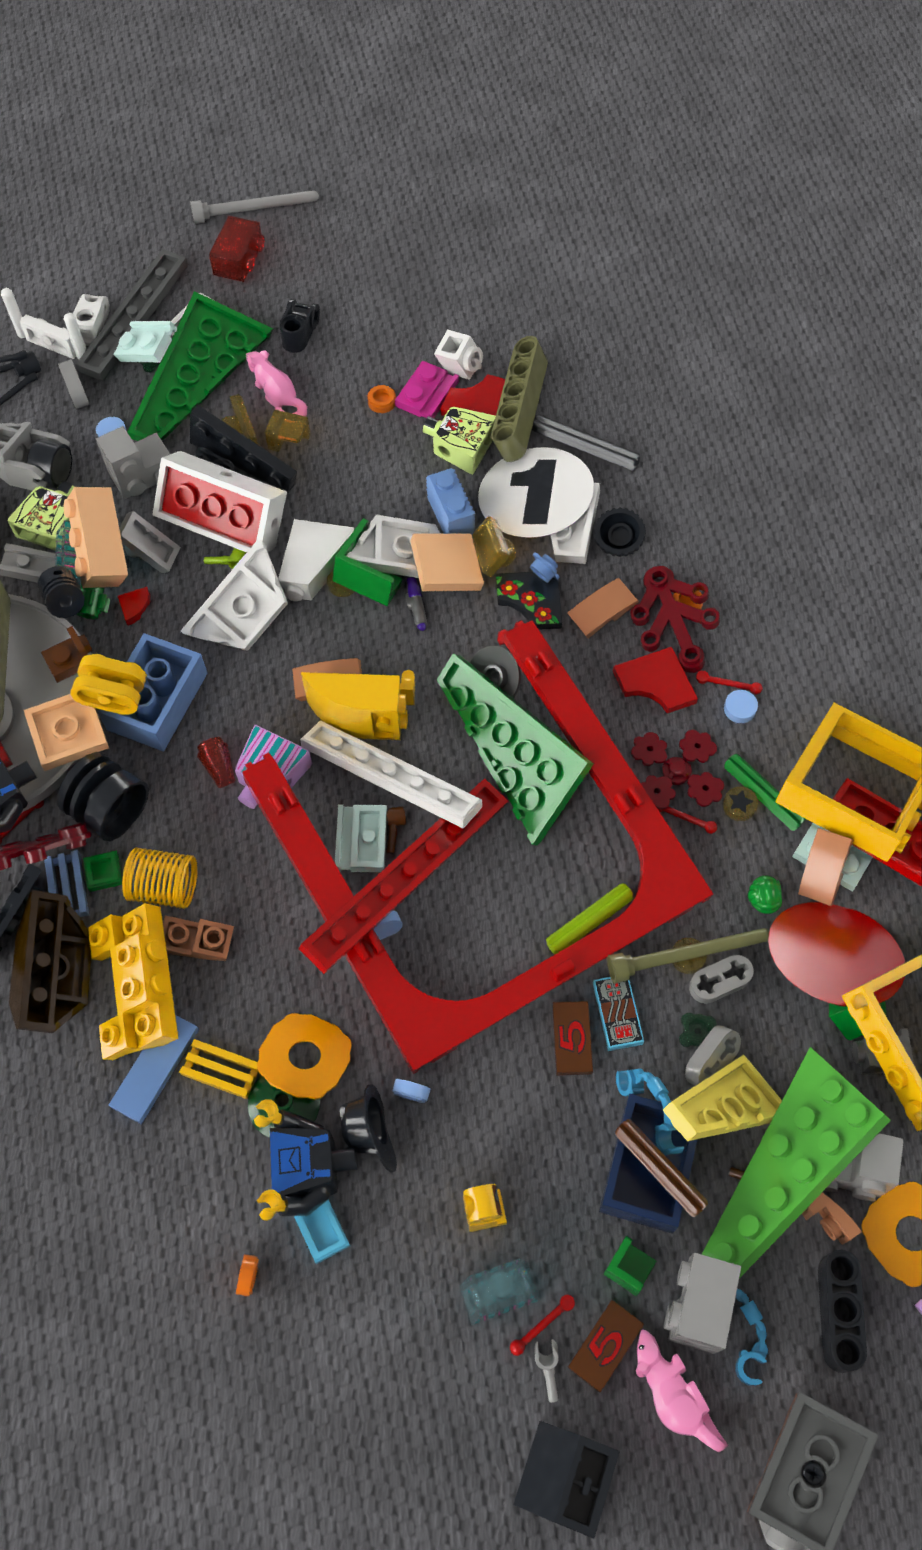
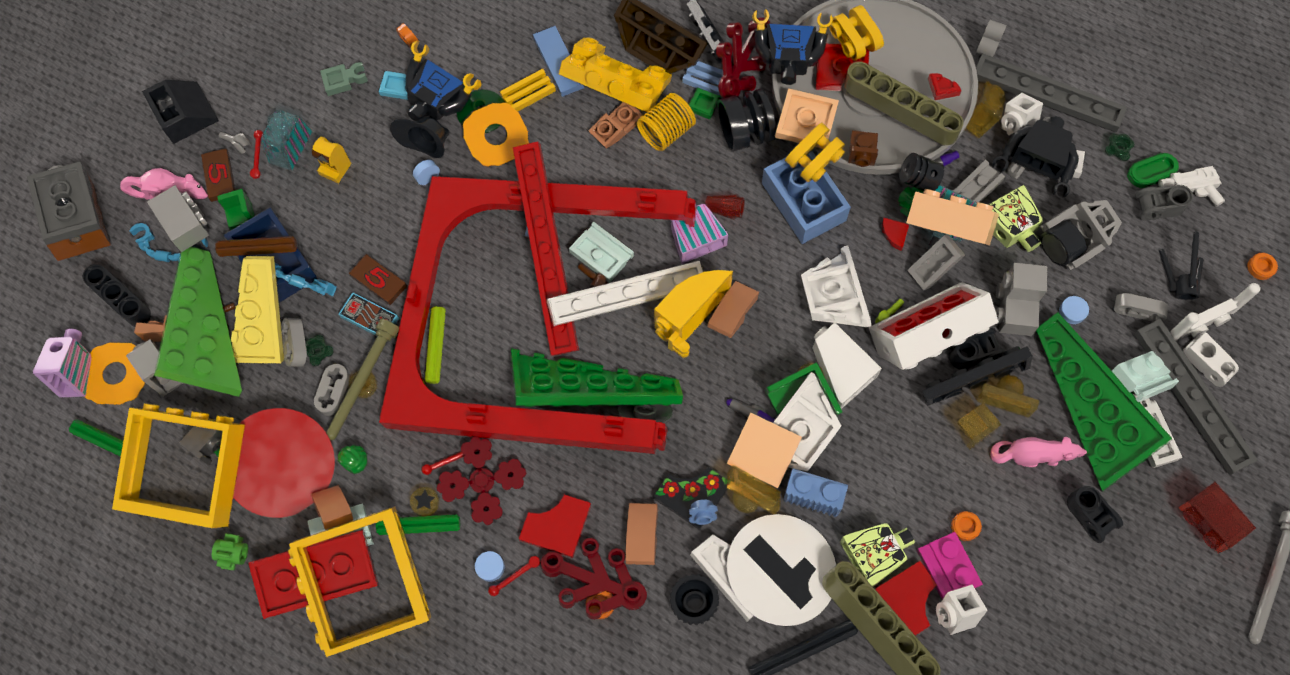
camera: 130 degrees right, 5 degrees up
(370, 1309) = (339, 79): none -> sand green plate

